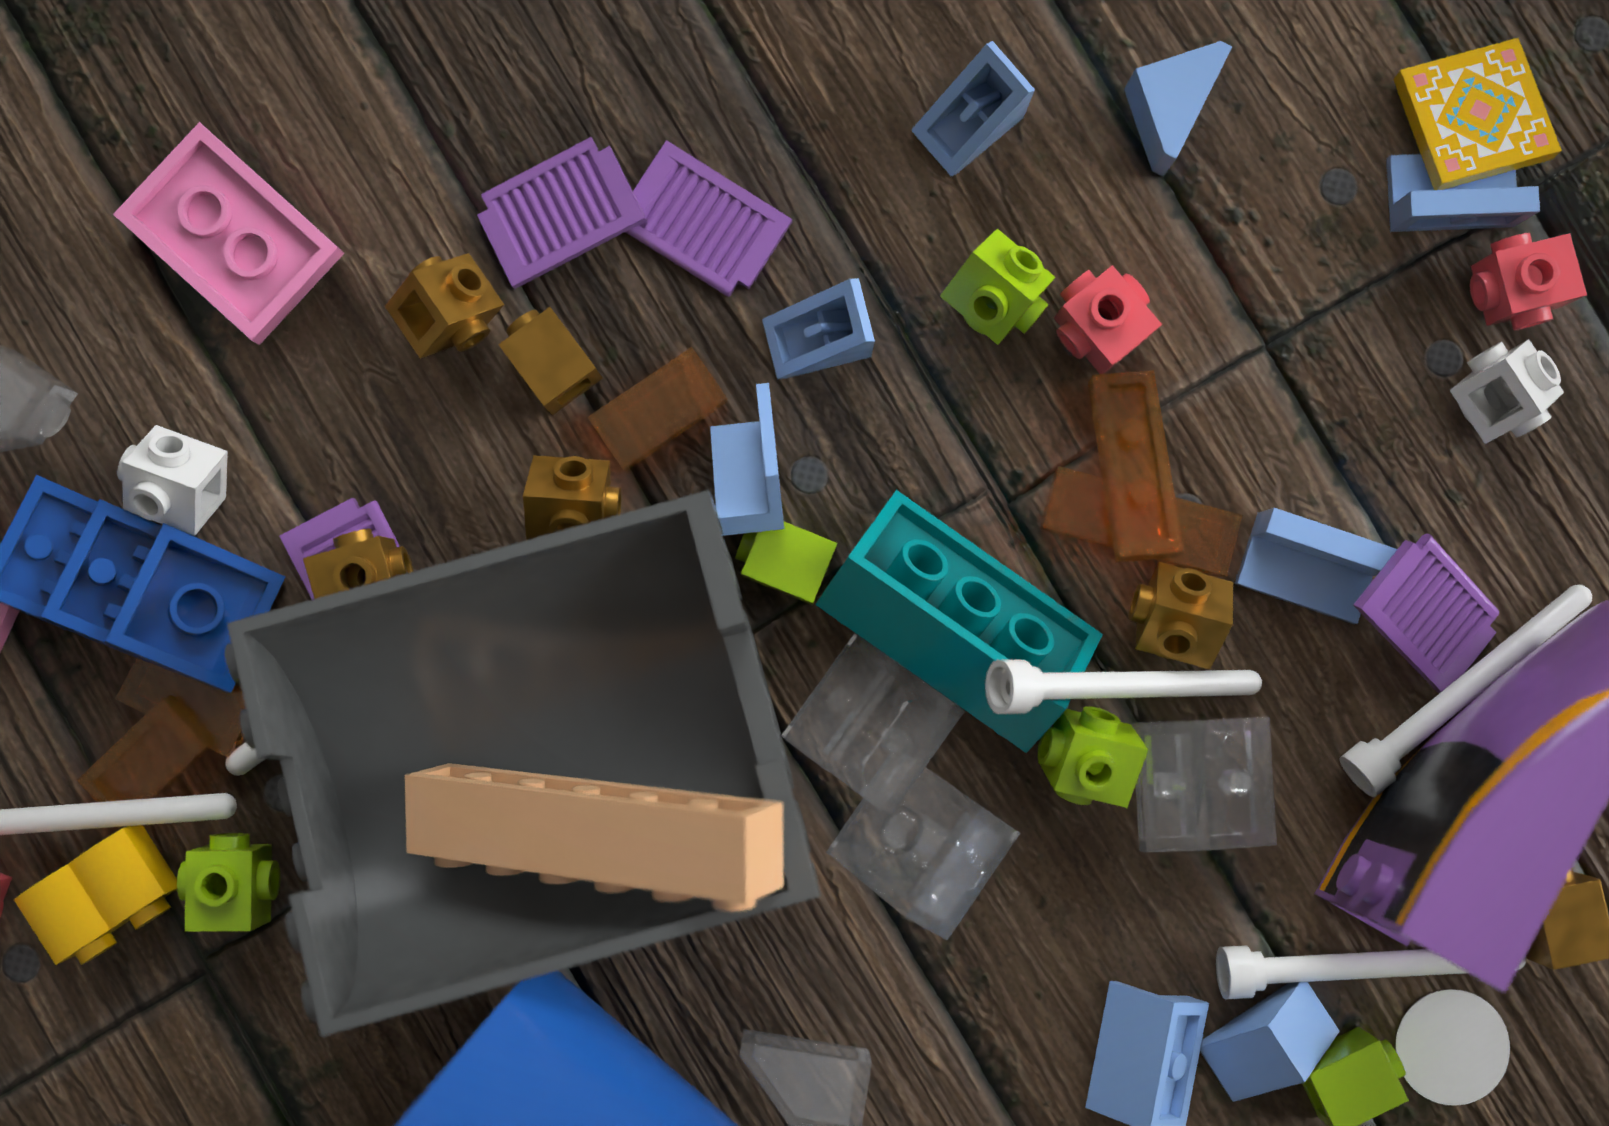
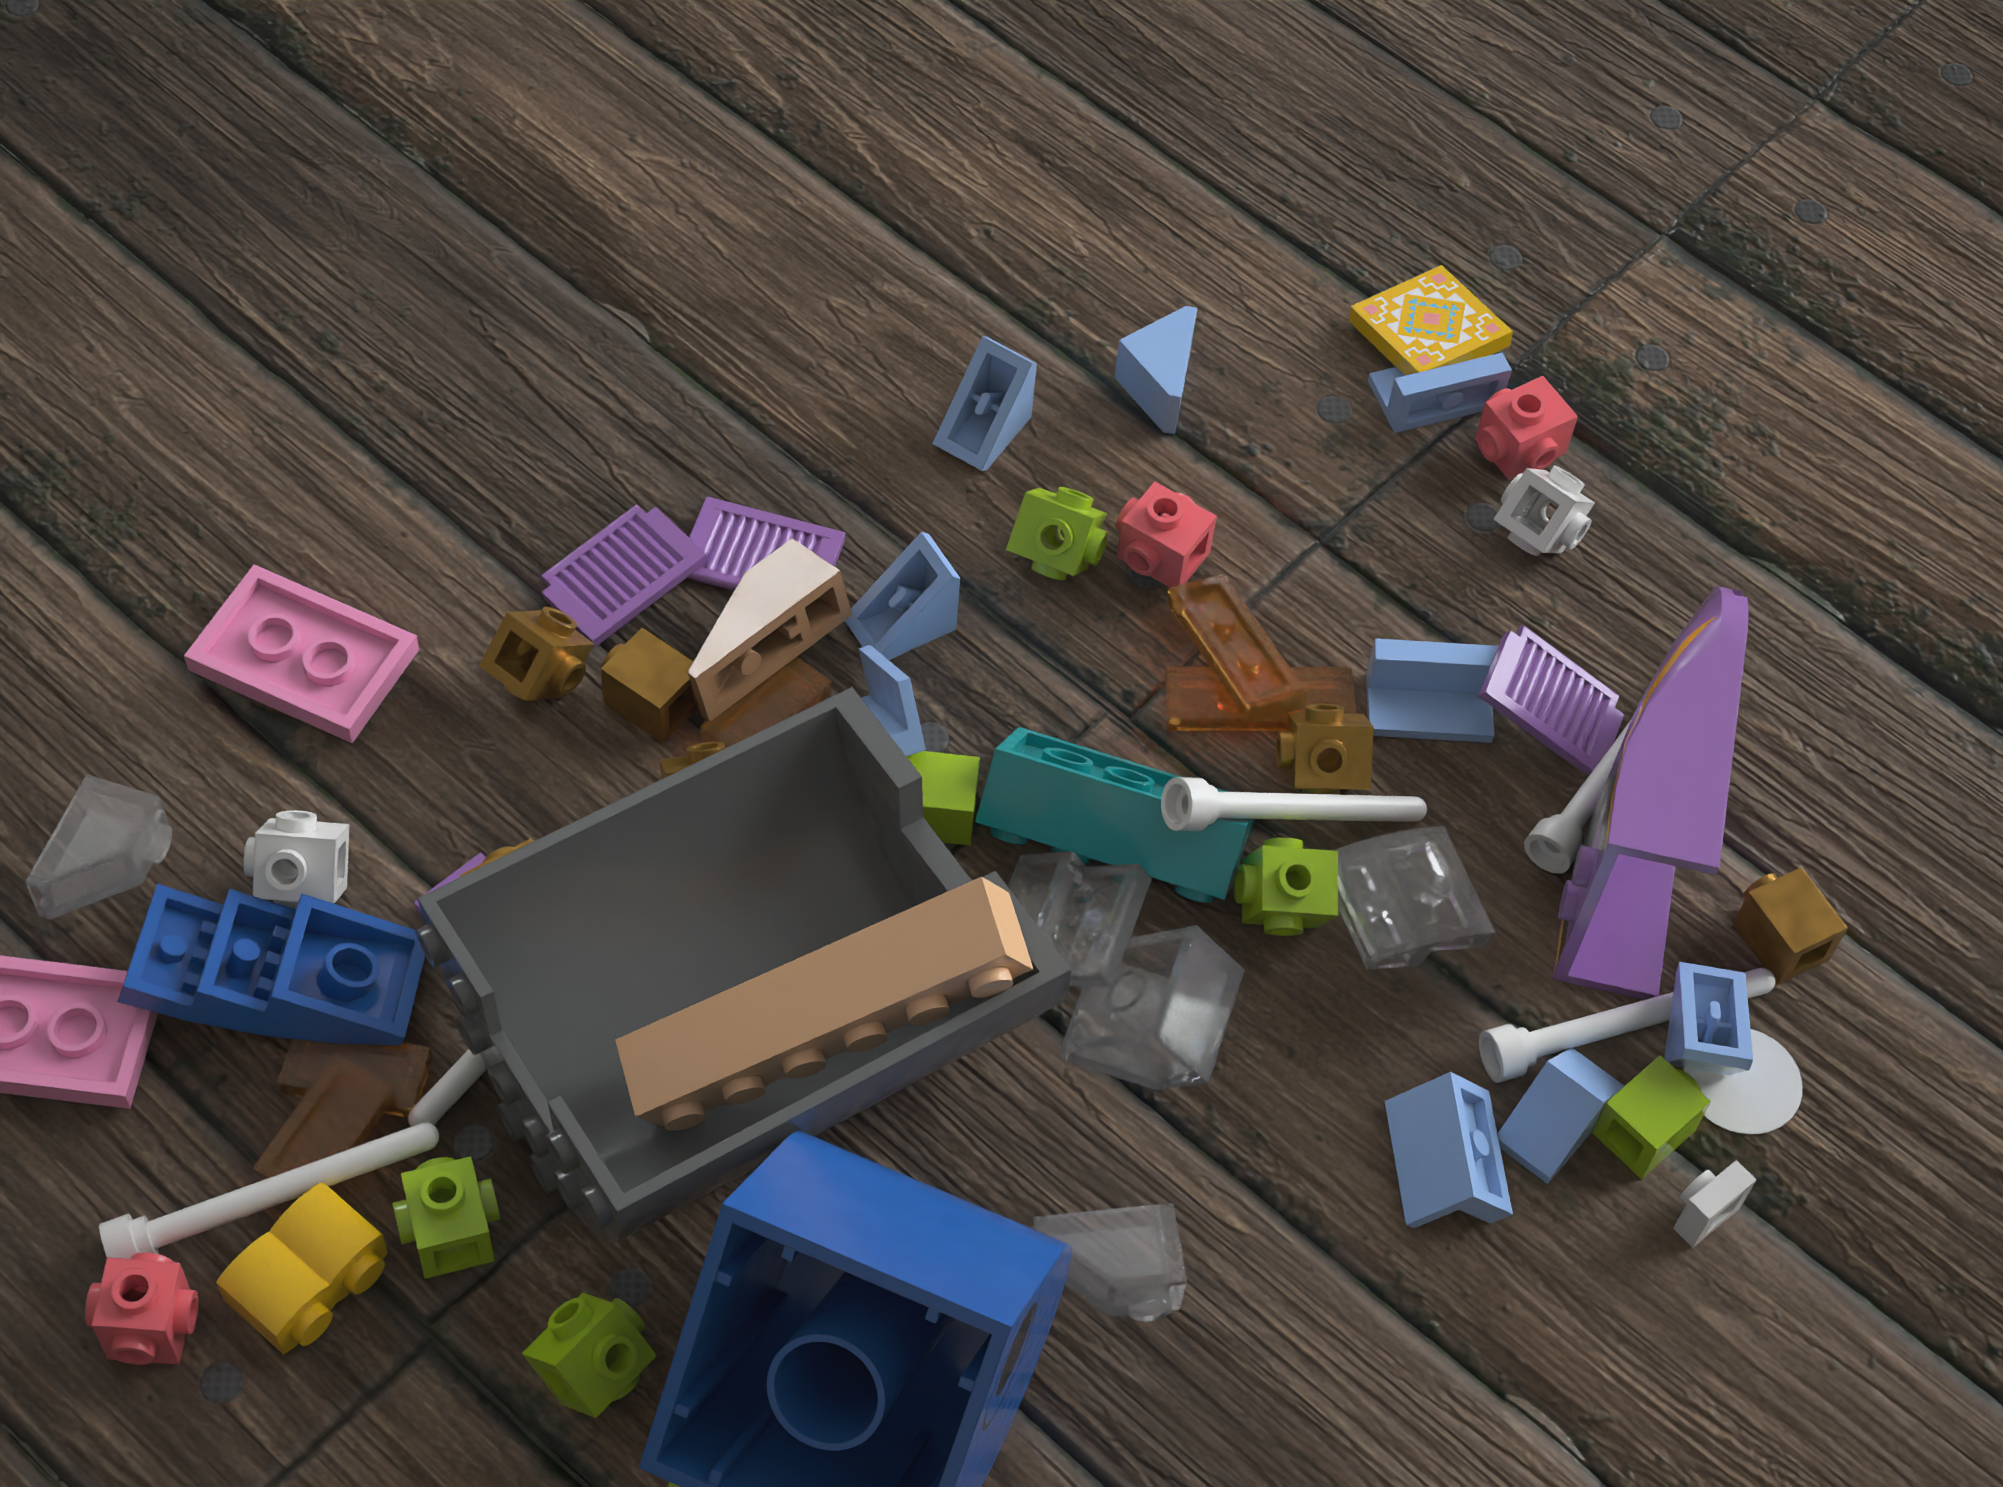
camera: 20 degrees left, 30 degrees down
(315, 1067) = (591, 1353): none -> lime brick
(679, 323) = (768, 622): none -> medium nougat slope
(1438, 1022) = (1709, 1021): none -> light blue slope

